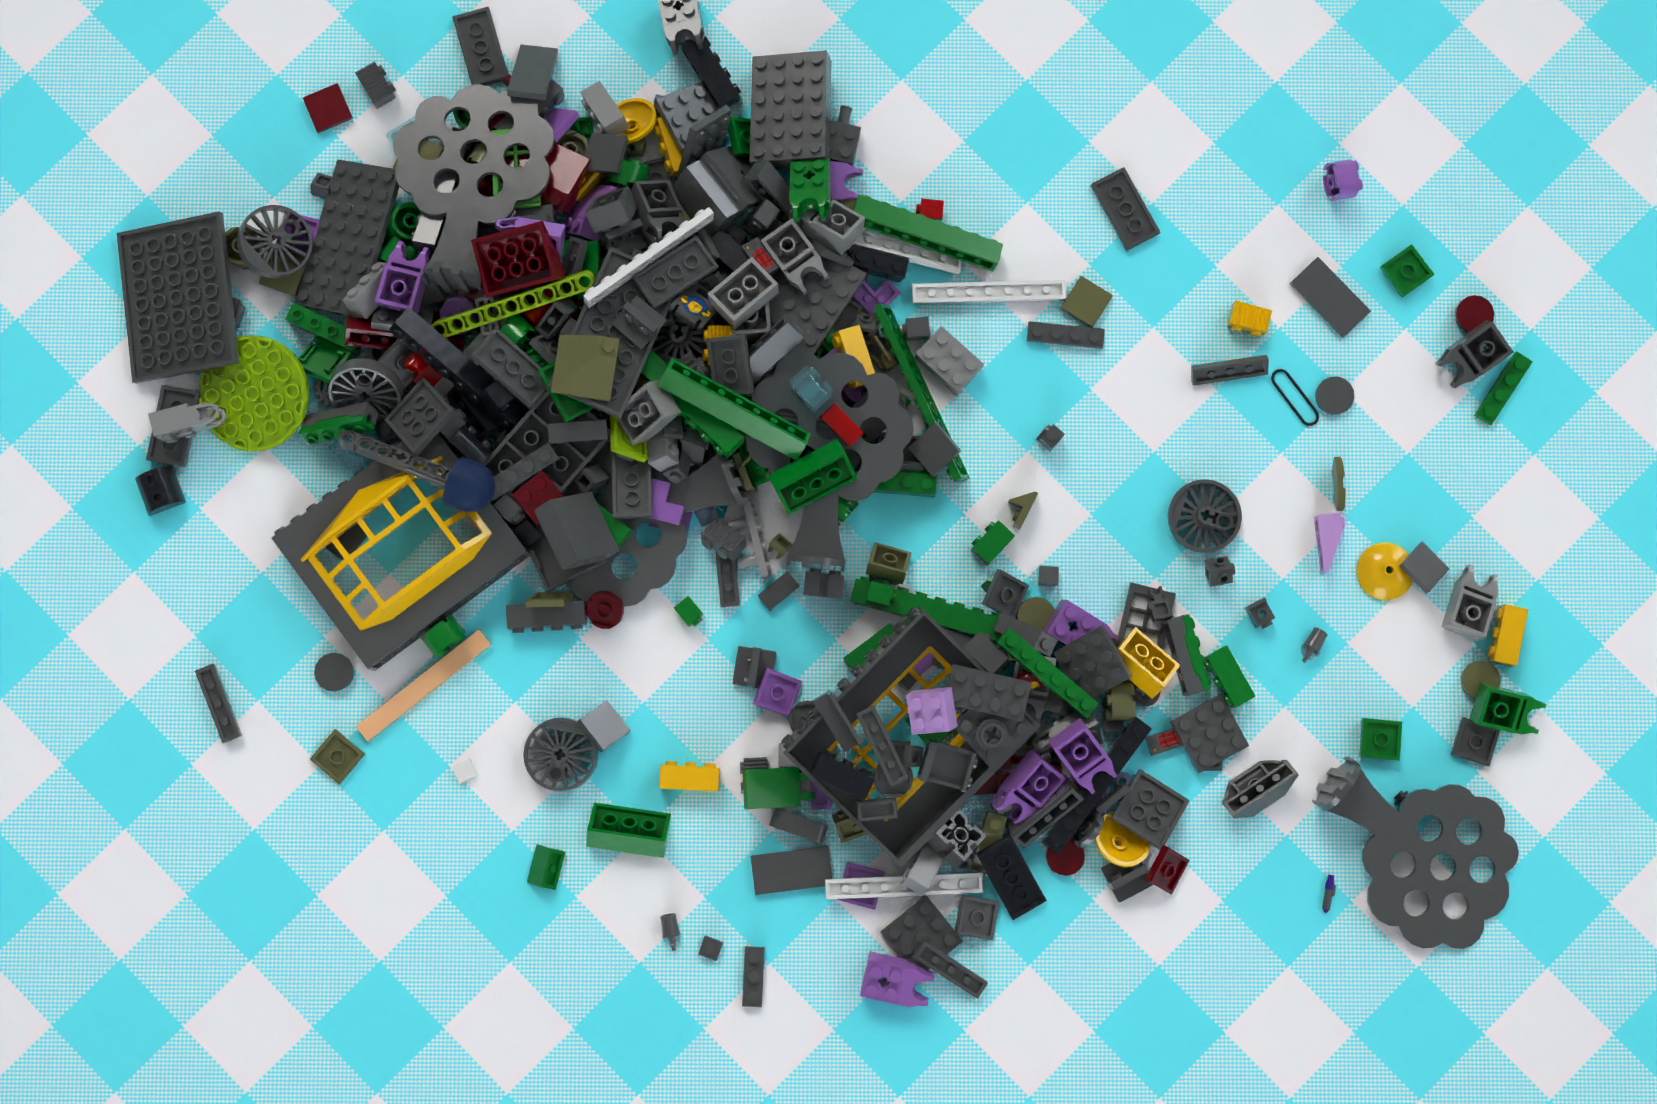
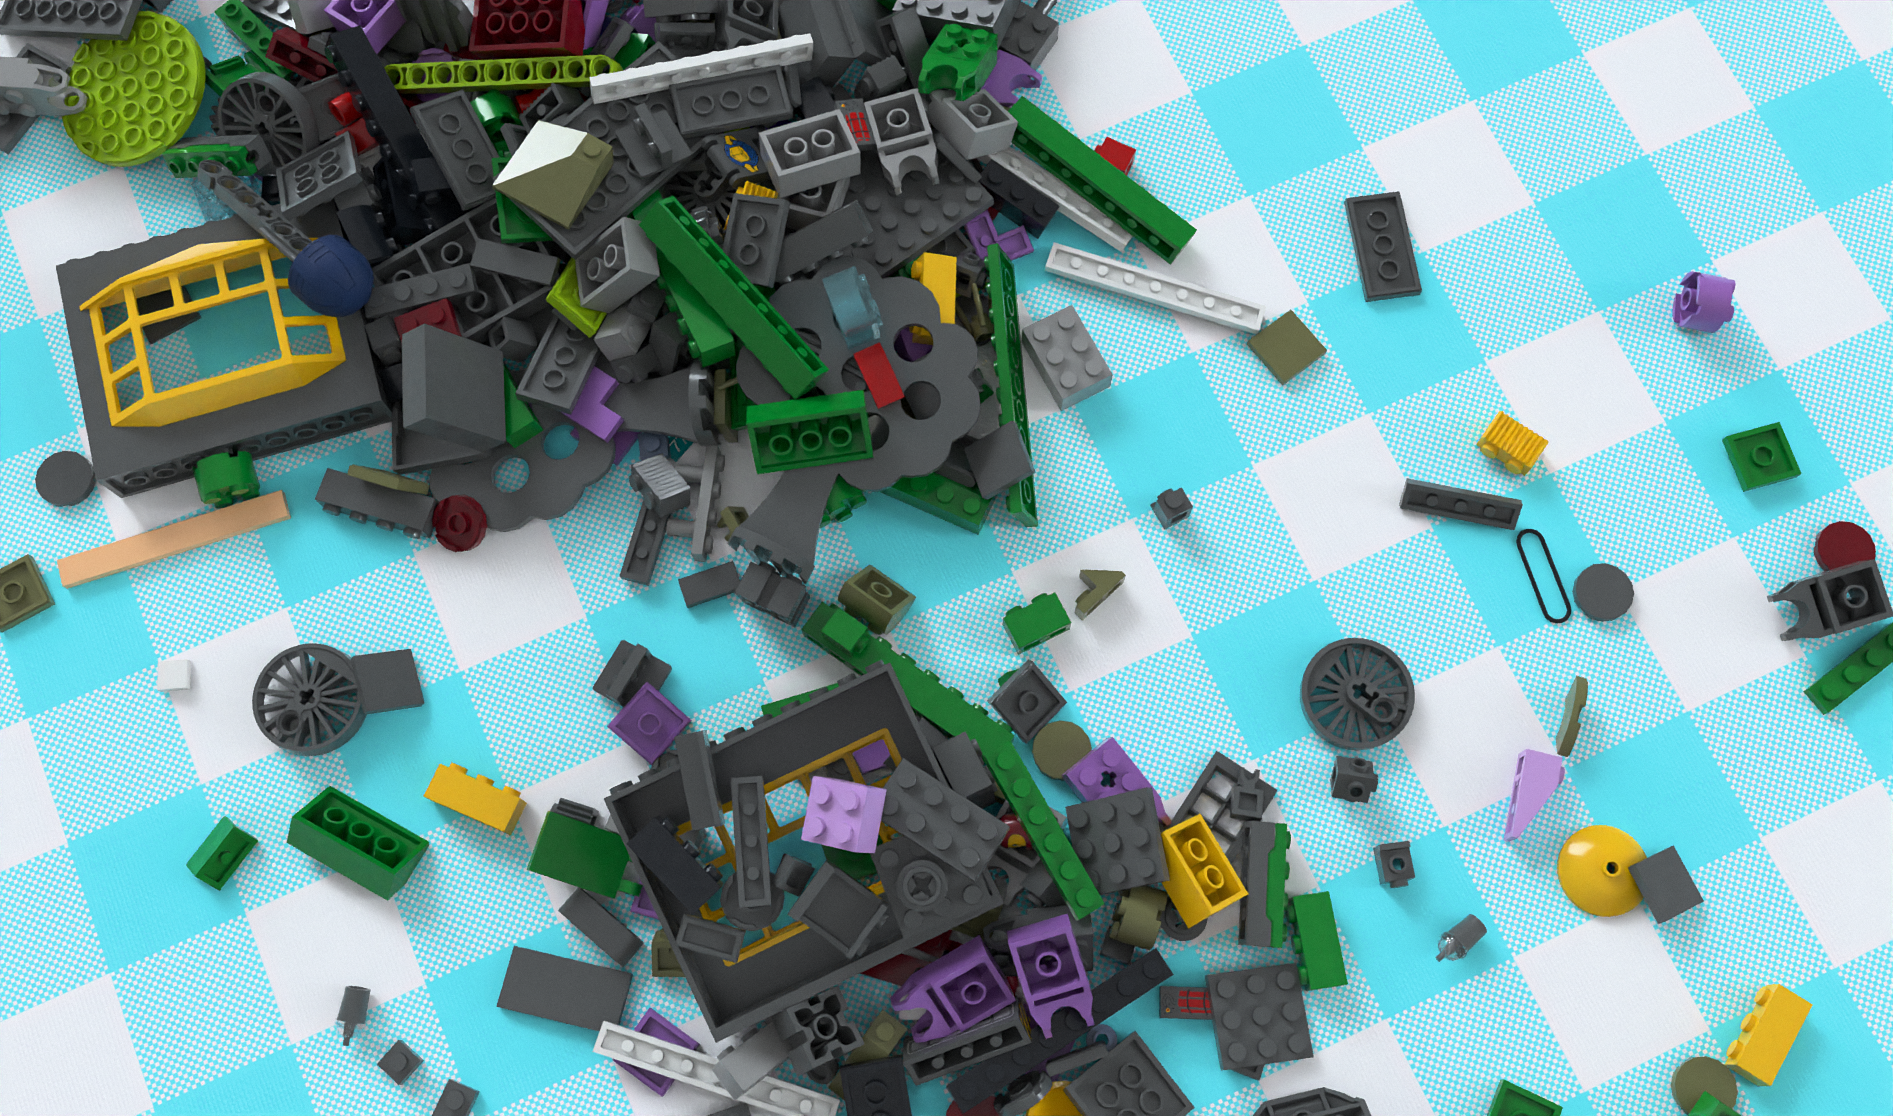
camera: 25 degrees right, 10 degrees down
(689, 612) = (573, 567): green brick -> none
(916, 328) = (1037, 300): dark grey brick -> none
(1036, 638) = (1049, 778): dark grey slope -> none
(1048, 575) = (1099, 699): dark grey slope -> none
(1065, 335) = (1241, 381): dark grey plate -> none
(1330, 297) = (1637, 456): dark grey tile -> none
(1472, 601) = (1723, 969): light grey brick -> none

